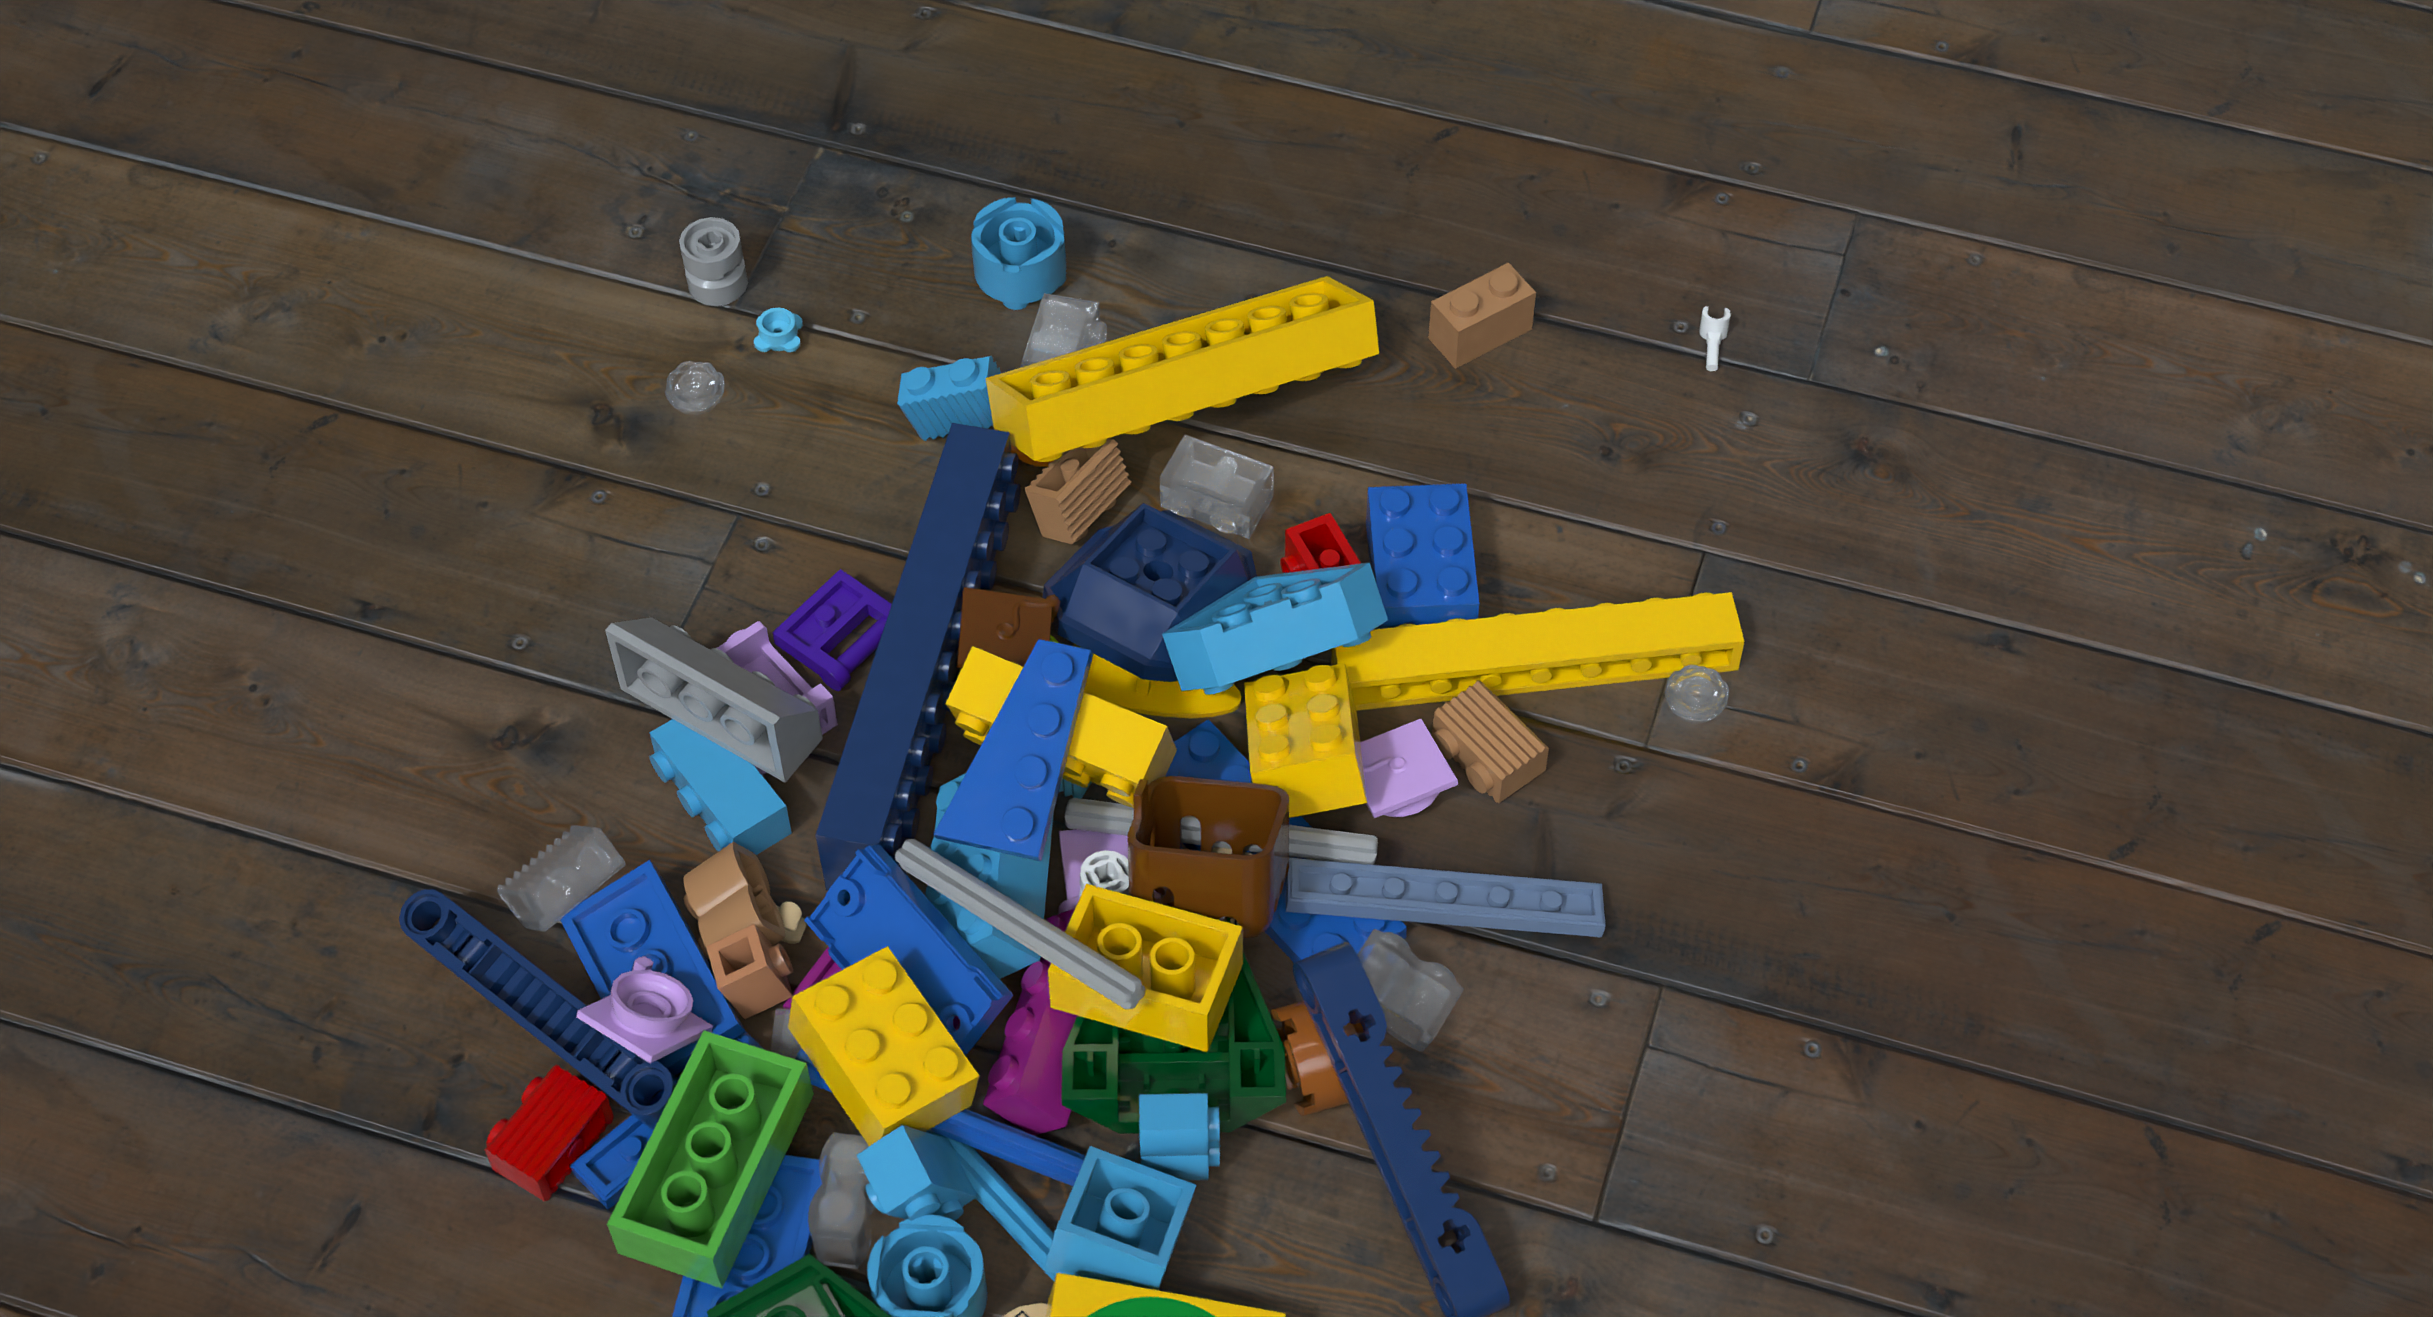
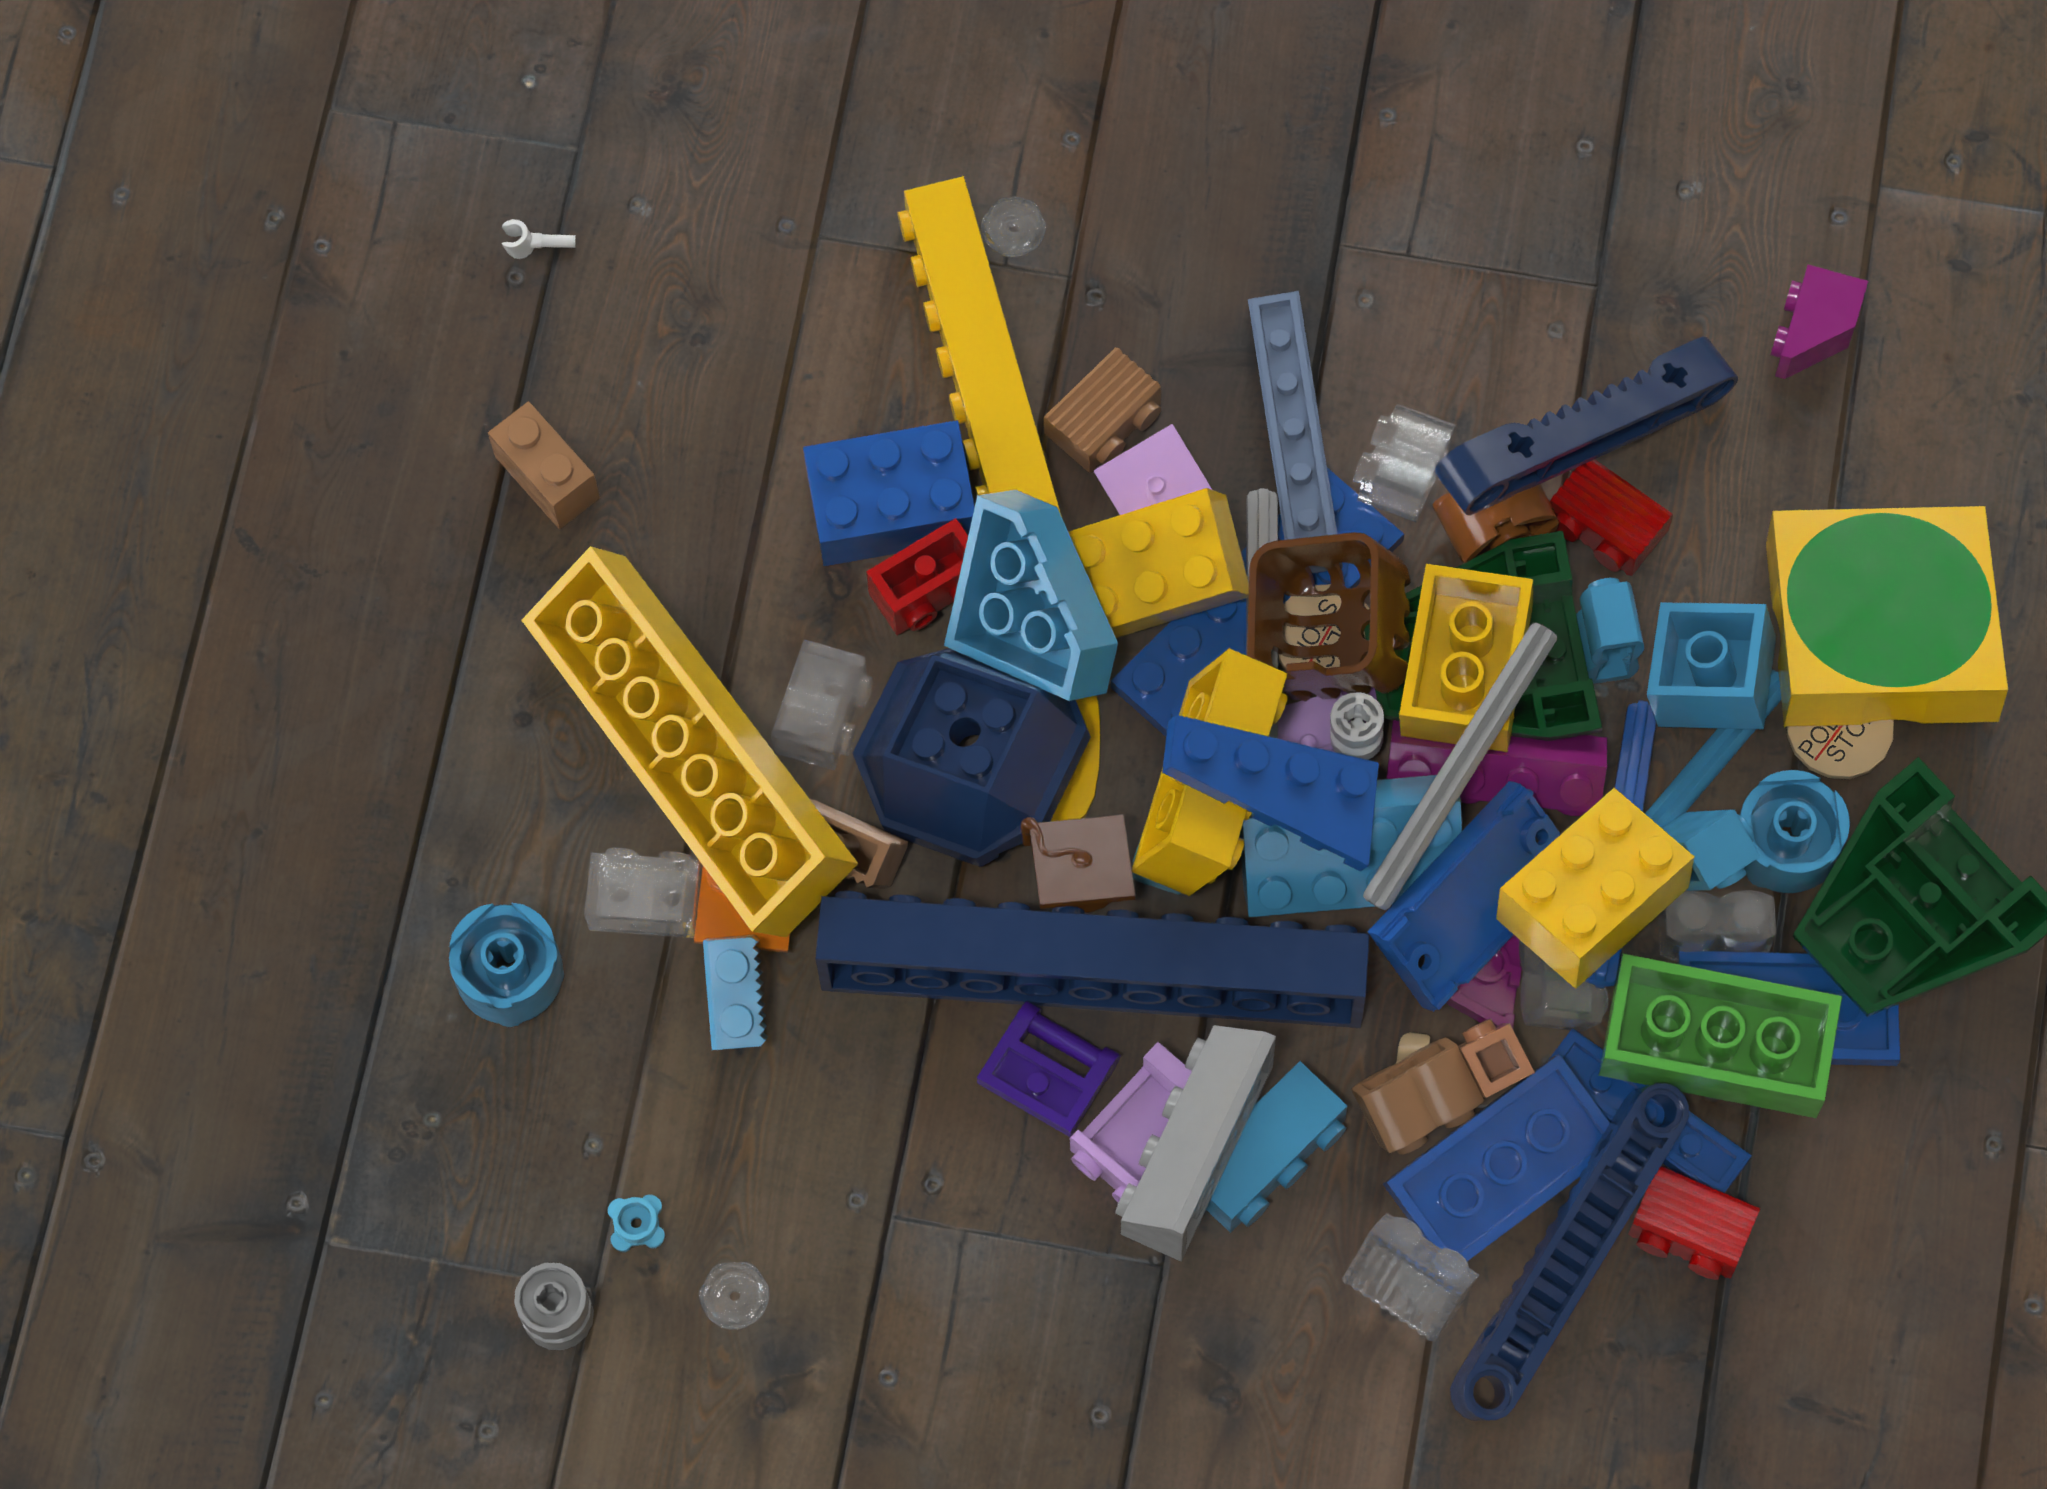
camera: 95 degrees left, 15 degrees up
(646, 1013) = (1581, 1132): lavender hat -> none
(1314, 1174) = (1609, 517): none -> red brick

